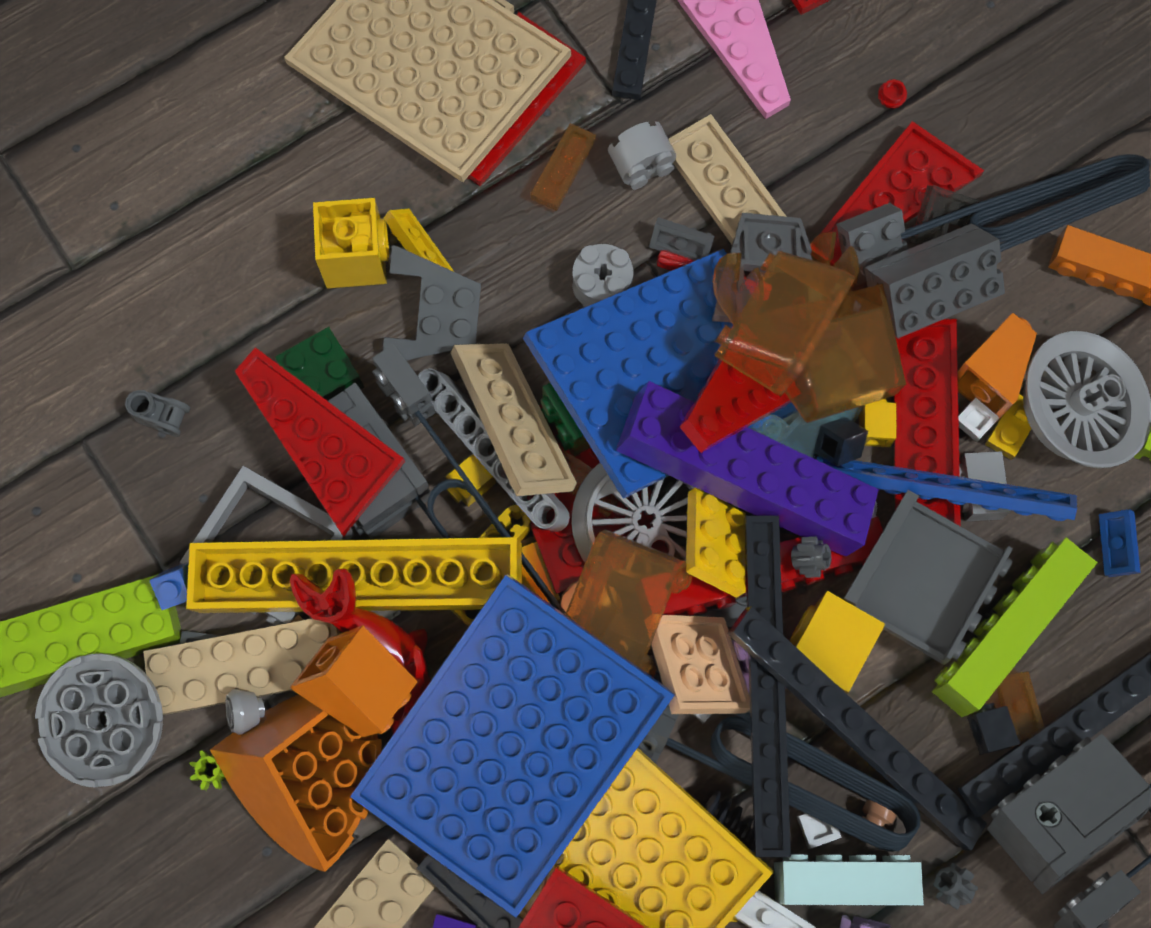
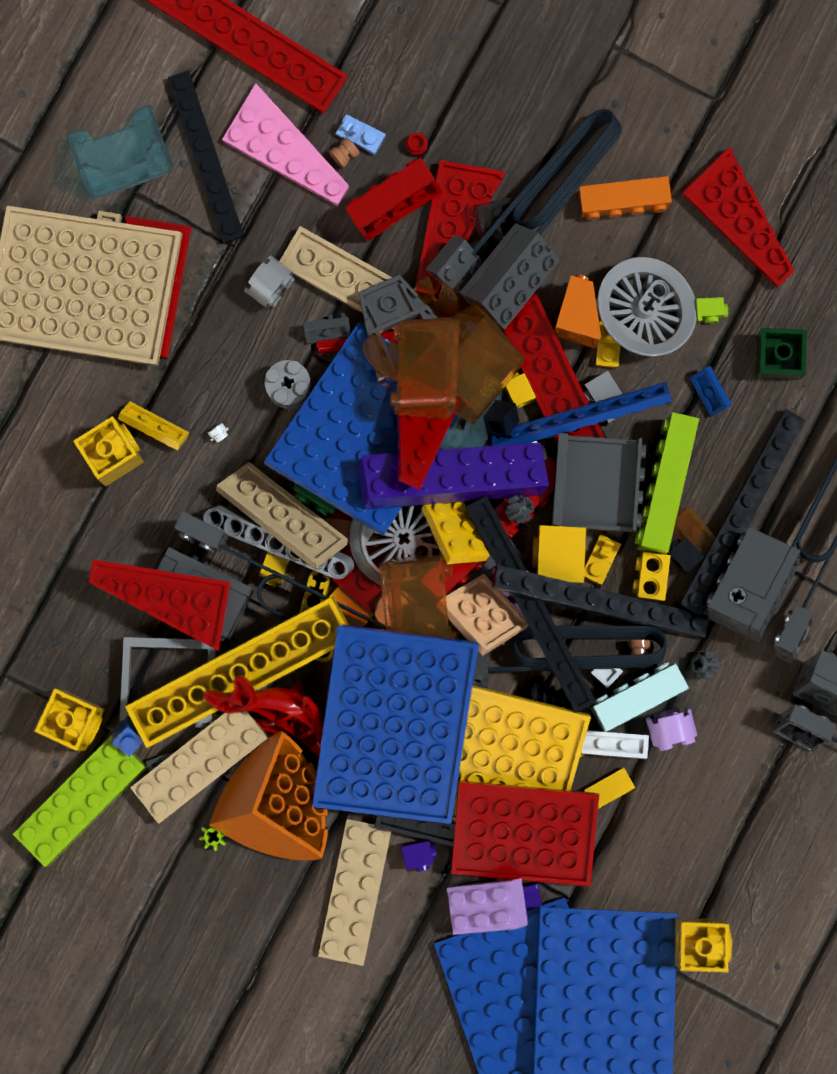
camera: 25 degrees left, 10 degrees up
(71, 724) = (125, 864): light grey brick -> none
(118, 528) = (70, 720): none -> yellow brick
(162, 414) = (46, 630): dark grey piece -> none
(243, 710) = (216, 790): light grey cone -> none
(321, 364) = (135, 545): dark green brick -> none
(356, 682) = (279, 737): orange slope -> none
(445, 307) = (195, 461): dark grey wing -> none
(491, 293) = (218, 432): none -> white plate
(563, 167) = (219, 316): clear orange plate -> none
(804, 62) = (344, 152): none -> nougat wheel
(832, 55) = (361, 134): none -> light blue plate
(838, 131) = (393, 199): none -> red brick
(881, 680) = (601, 559): none -> yellow plate
(943, 740) = (658, 578): none -> yellow brick
(976, 419) = (582, 354): white plate -> none

